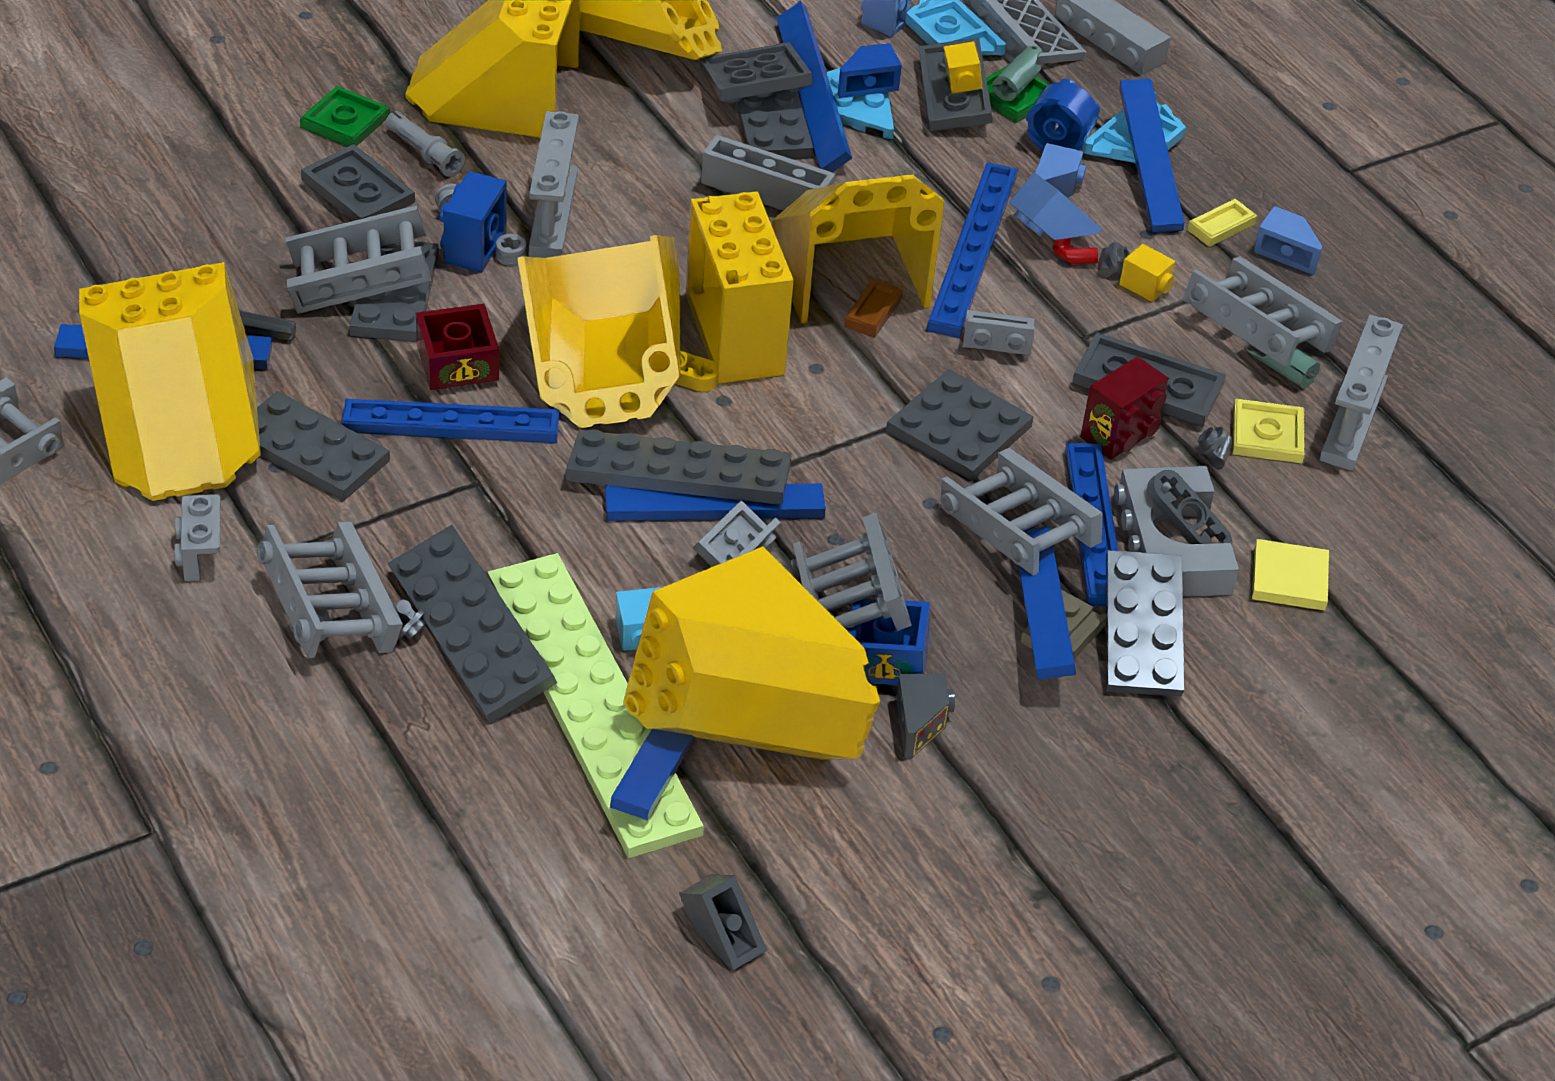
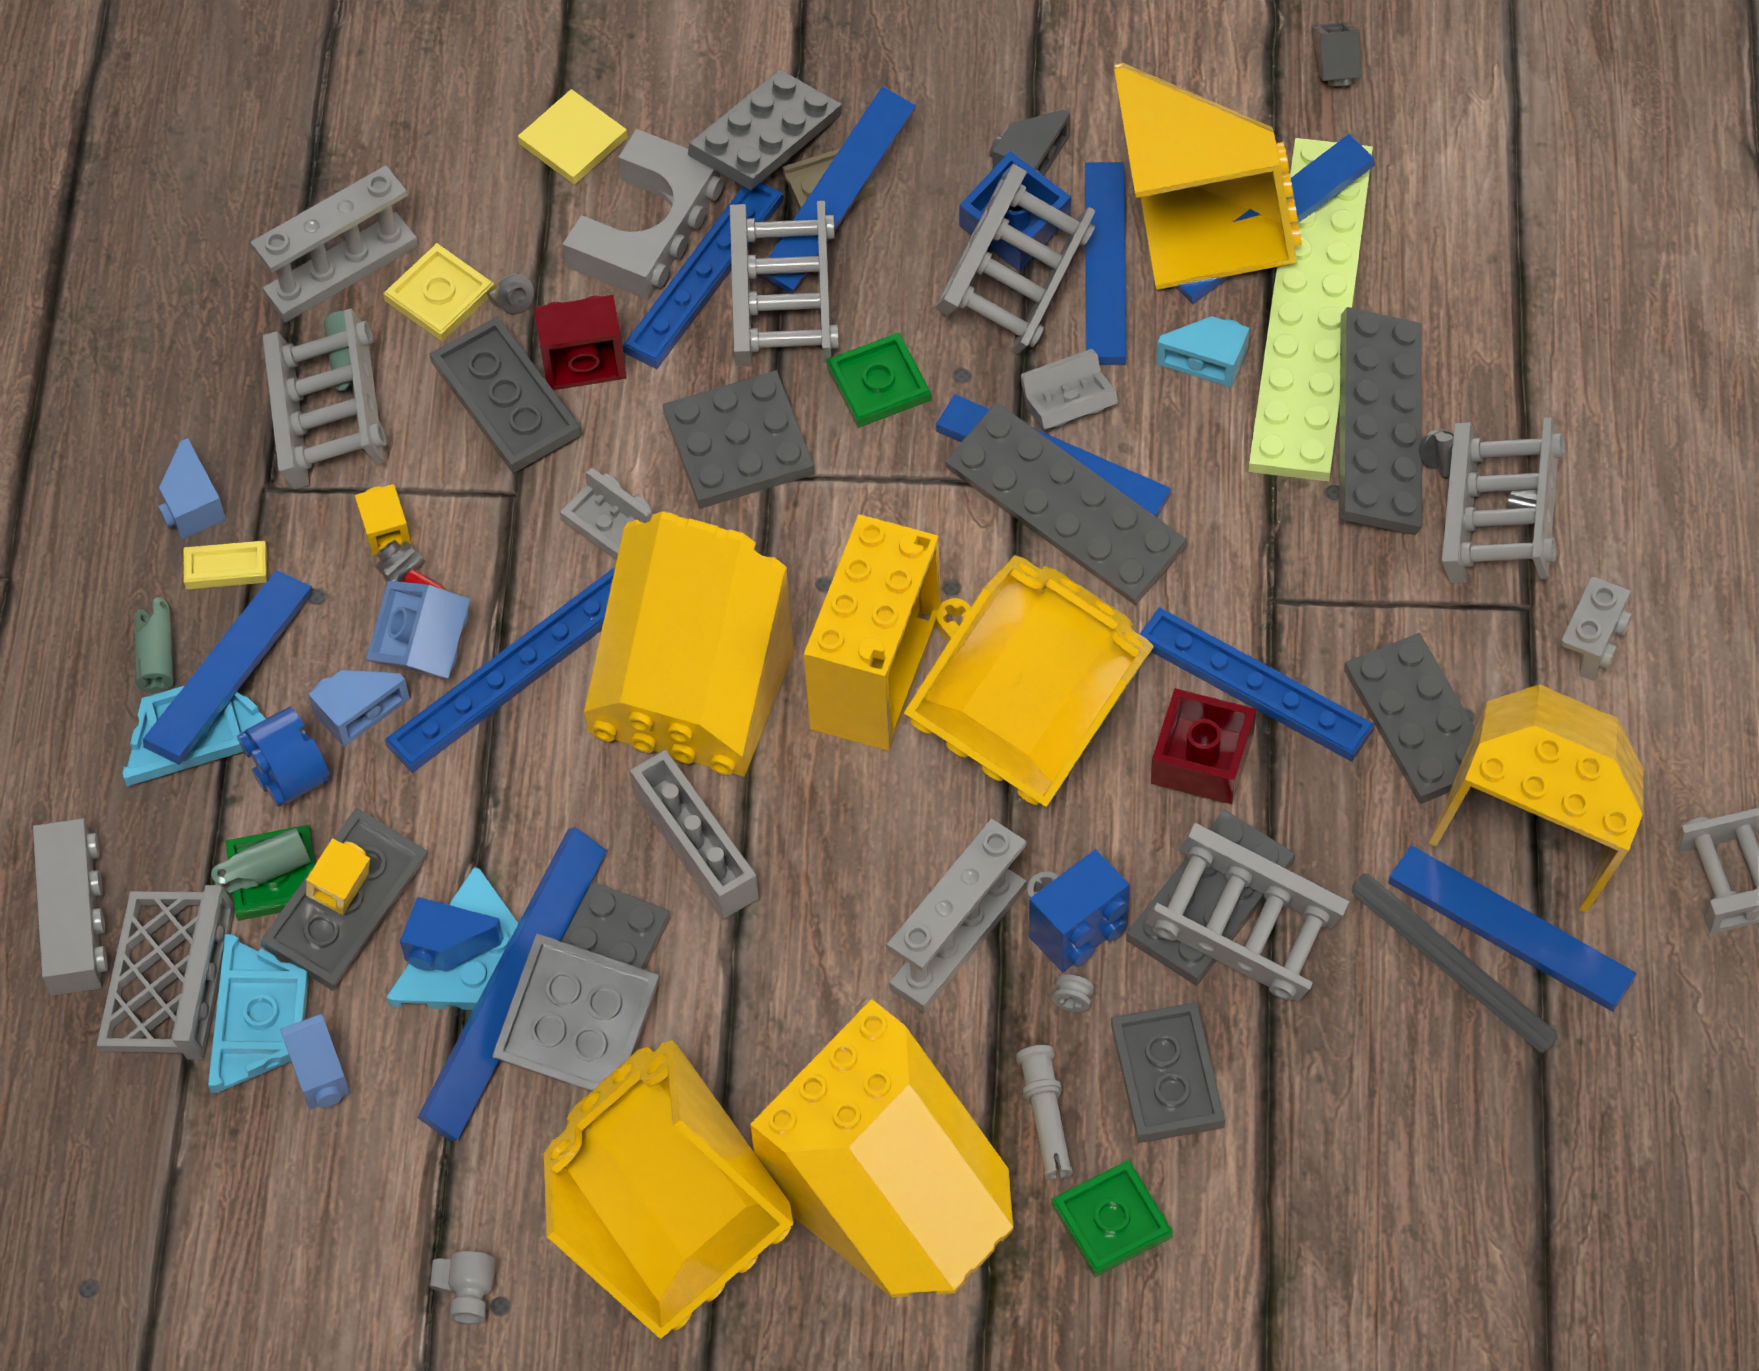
camera: 140 degrees left, 15 degrees up
(898, 501) = (878, 380): none -> green tile
(1174, 513) = (626, 206): dark grey beam -> none
(1210, 157) = (153, 648): none -> sand green piece

